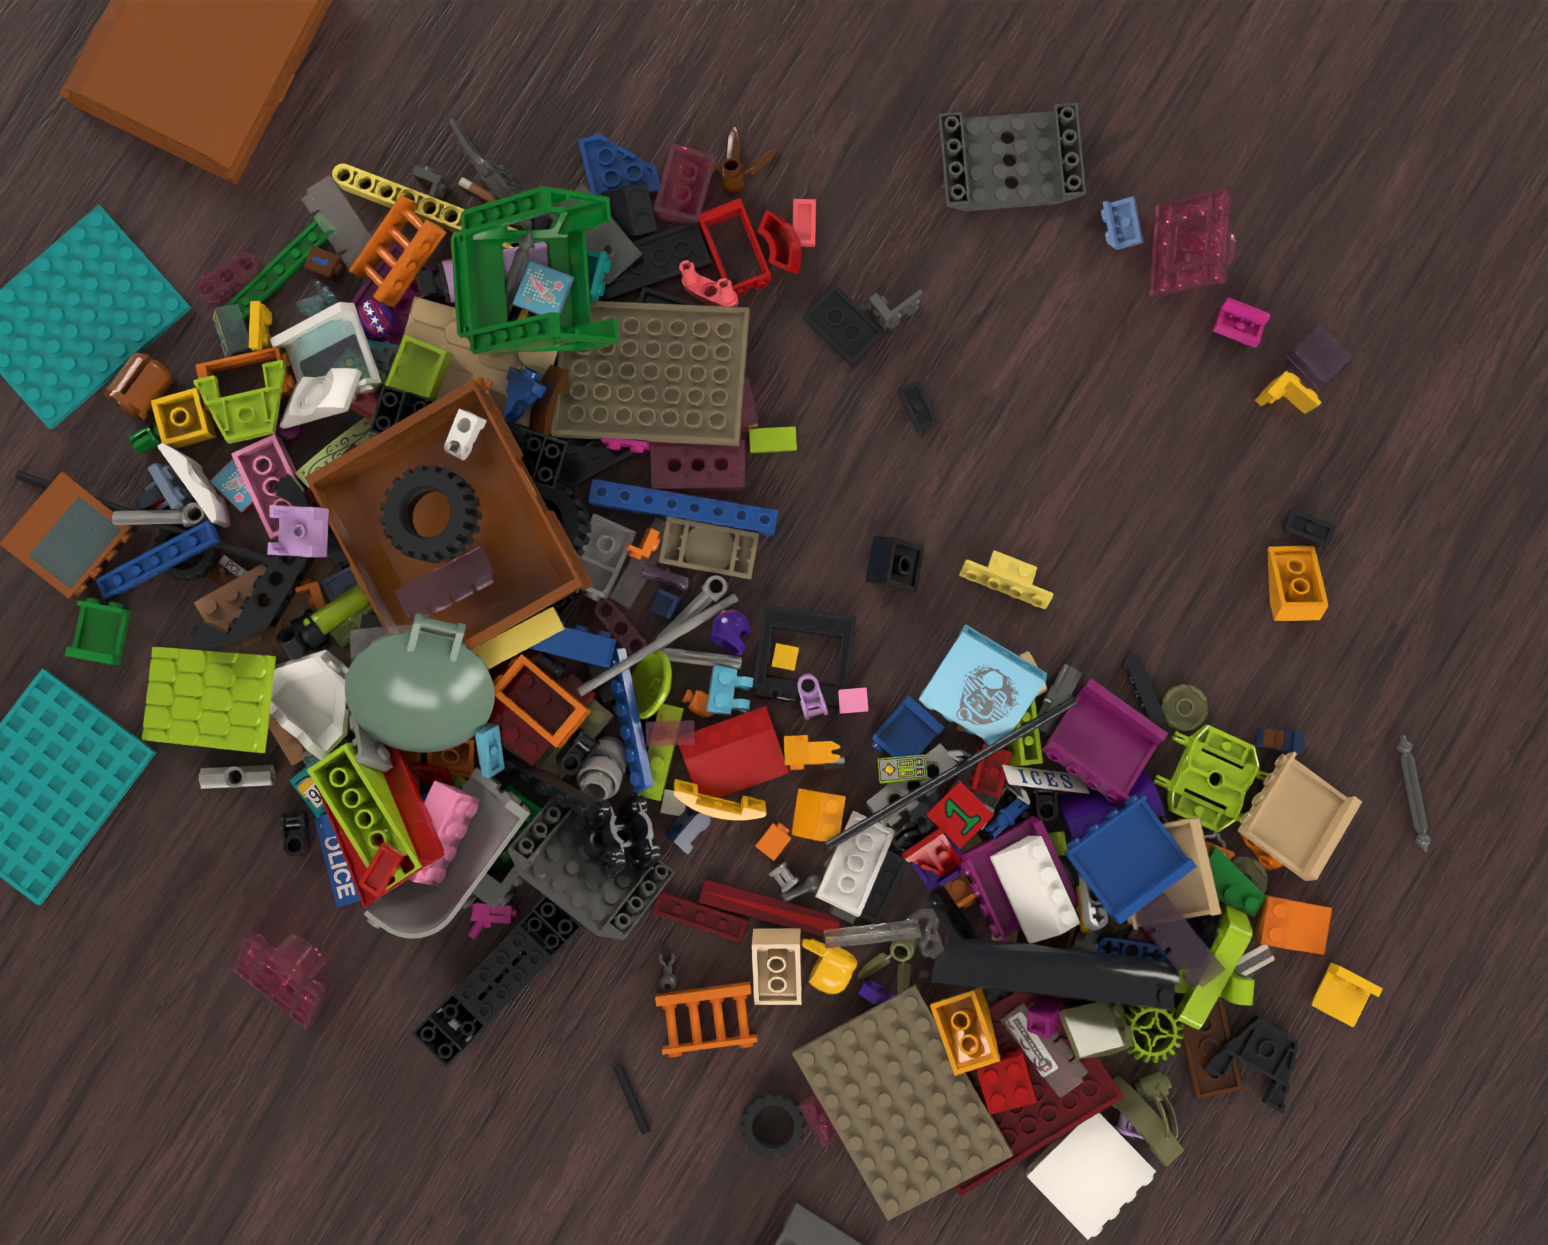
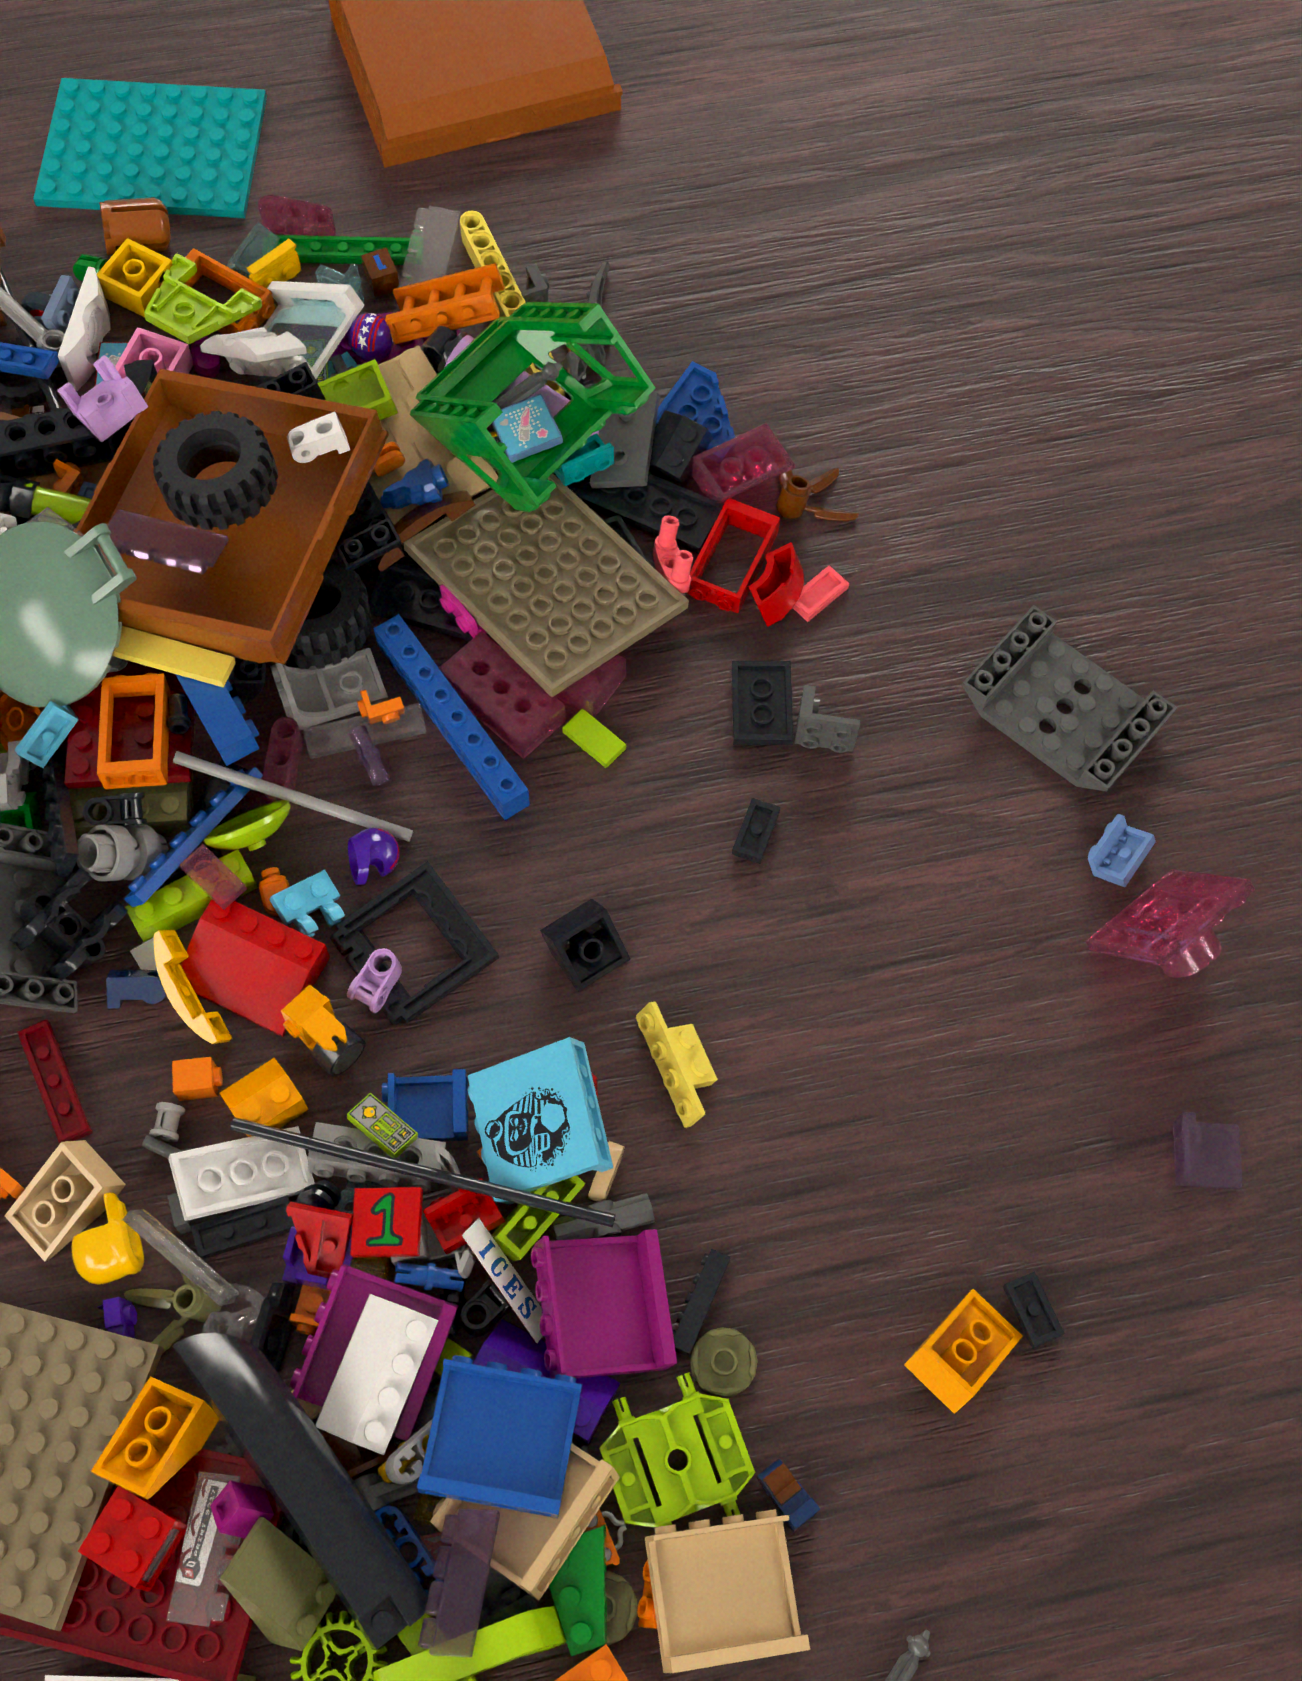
camera: 45 degrees right, 20 degrees down
(665, 604) = (343, 781): dark blue panel -> none
(697, 605) = (376, 807): light grey axle -> none
(702, 658) = (319, 854): light grey axle -> none
(708, 548) = (434, 769): dark tan slope -> none
(767, 908) = (120, 1137): dark red tile -> none
(785, 657) = (395, 929): yellow tile -> none
(853, 700) = (411, 1025): bright pink panel -> none
(1241, 322) = (1154, 1046): dark pink bracket -> none
(1290, 387) = (1143, 1139): yellow bracket -> none

